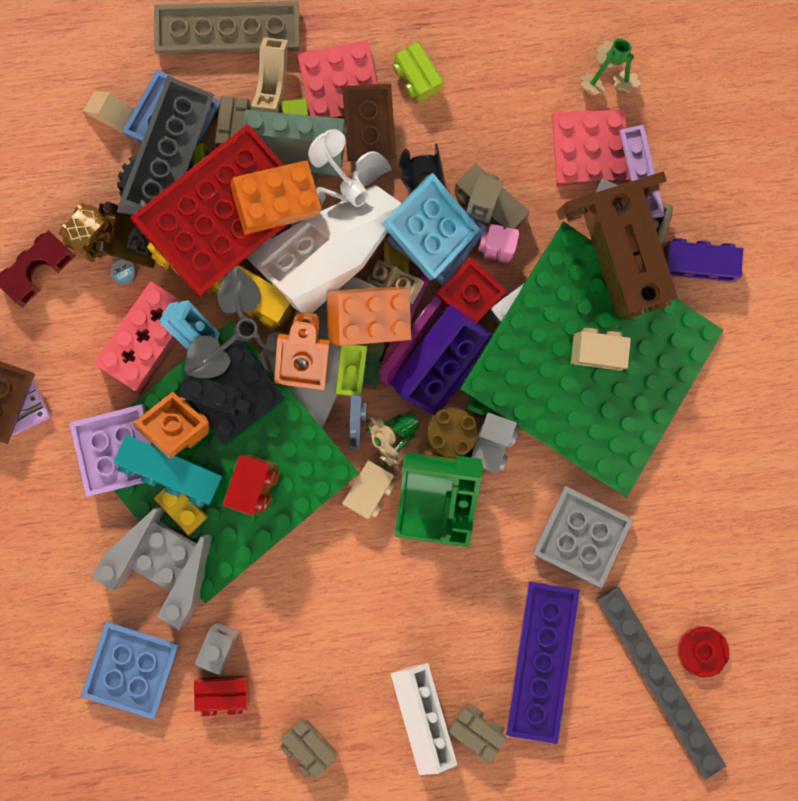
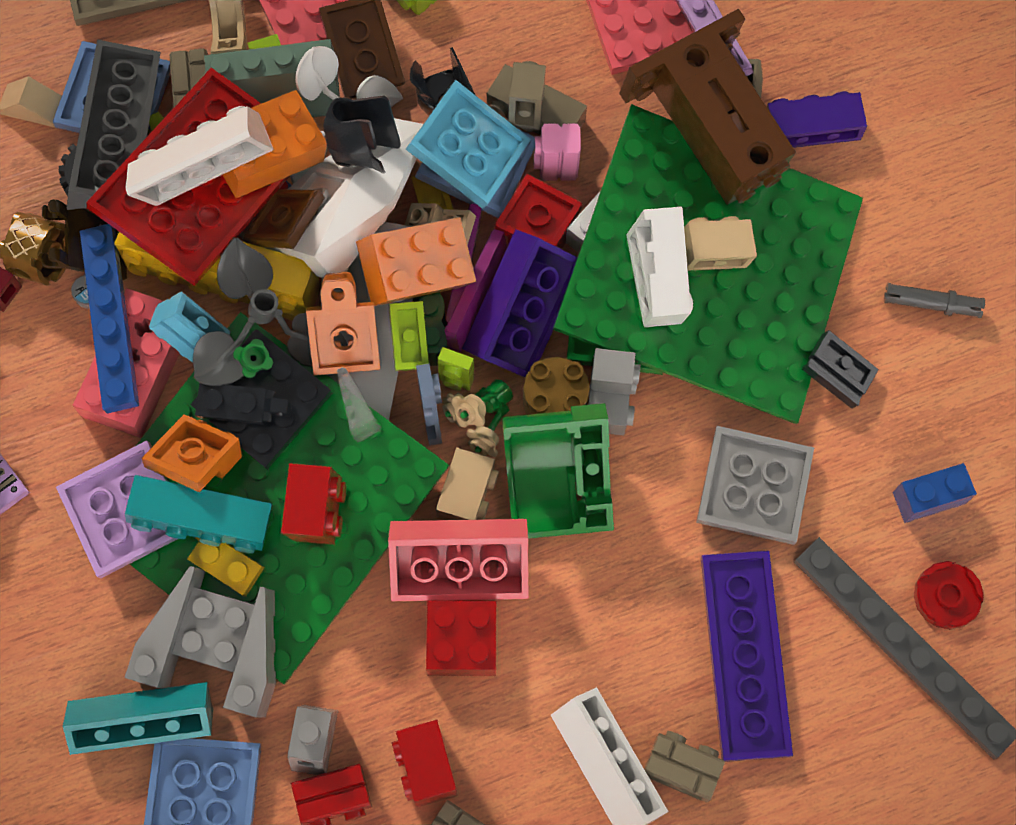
camera: 10 degrees left, 10 degrees down
(95, 607) = (138, 718): none -> teal brick
(132, 305) = (109, 319): none -> blue plate
(219, 203) = (198, 156): none -> white slope
(237, 367) = (257, 349): none -> green plate
(277, 258) = (284, 218): none -> reddish brown tile
(292, 690) = (426, 764): none -> red brick
(300, 419) = (359, 415): none -> clear slope
(339, 602) = (461, 638): none -> red brick
(349, 199) = (357, 127): none -> black piece
(350, 546) = (458, 560): none -> coral brick
(380, 400) = (455, 369): none -> lime plate
(552, 362) = (660, 266): none -> white wedge
(669, 464) = (840, 369): none -> black plate
(713, 575) = (934, 492): none -> blue brick
(764, 429) = (934, 300): none -> dark grey pin

